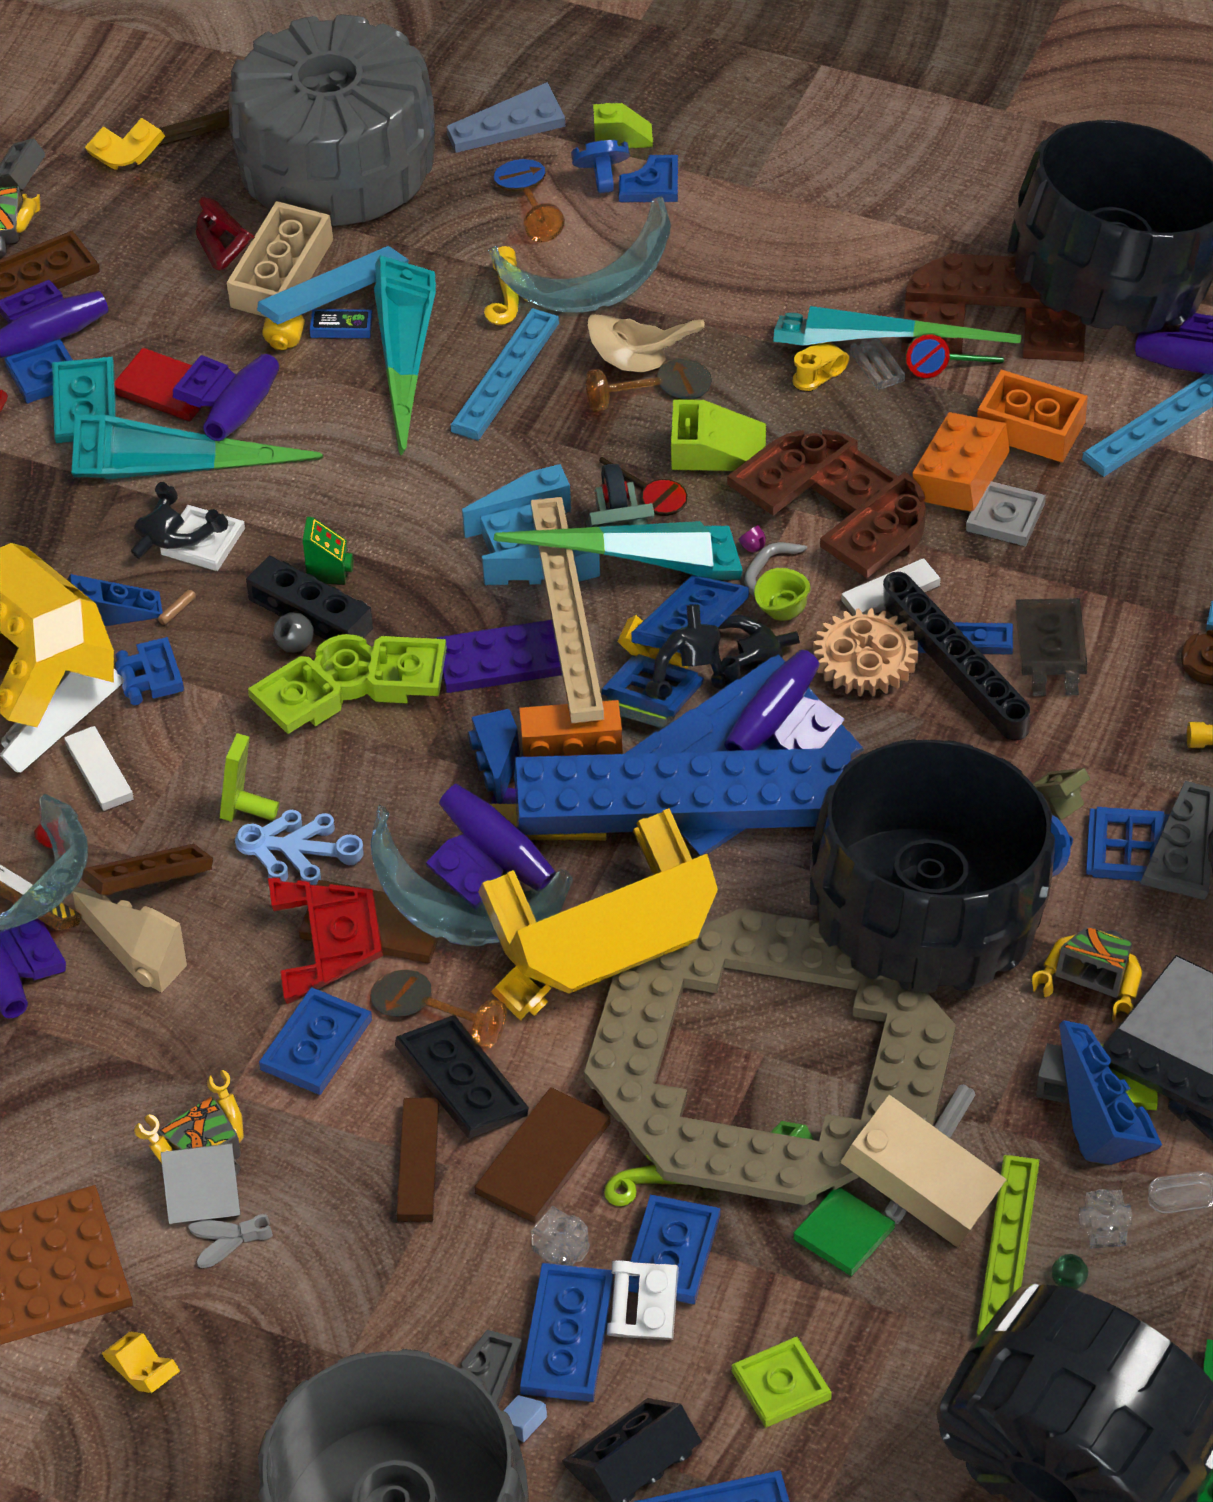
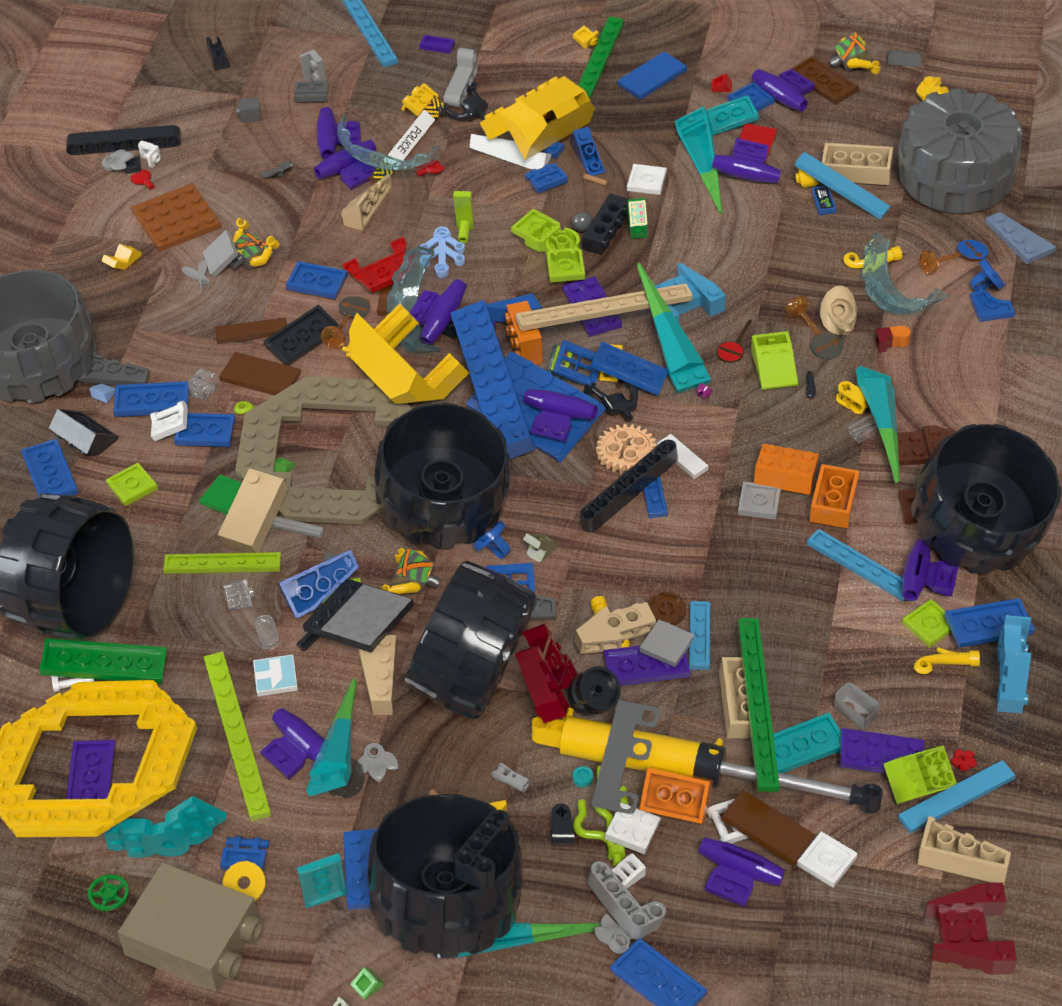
camera: 80 degrees right, 0 degrees up
(99, 768) = (479, 173): white tile -> none
(147, 869) = (405, 195): reddish brown plate -> none
(163, 522) = (646, 157): black piece -> none
(209, 234) = (880, 134): dark red piece -> none
(404, 309) = (837, 219): teal plate -> none
(504, 374) = (807, 271): dark azure tile -> none
(613, 504) = (700, 322): sand green plate -> none
(622, 124) = (1026, 282): lime slope -> none
(696, 299) = (892, 337): none -> leg
(697, 647) = (588, 362): black piece -> none
(762, 558) = (686, 397): light grey animal -> none
(776, 413) = (811, 388): none -> black piece
(782, 593) = (658, 405): lime helmet -> none
(883, 507) = (761, 426): copper plate -> none
(930, 355) = (873, 447): piece -> none
(1051, 641) = (656, 531): clear smoke tile -> none
(1070, 1271) = (208, 588): clear green plate -> none

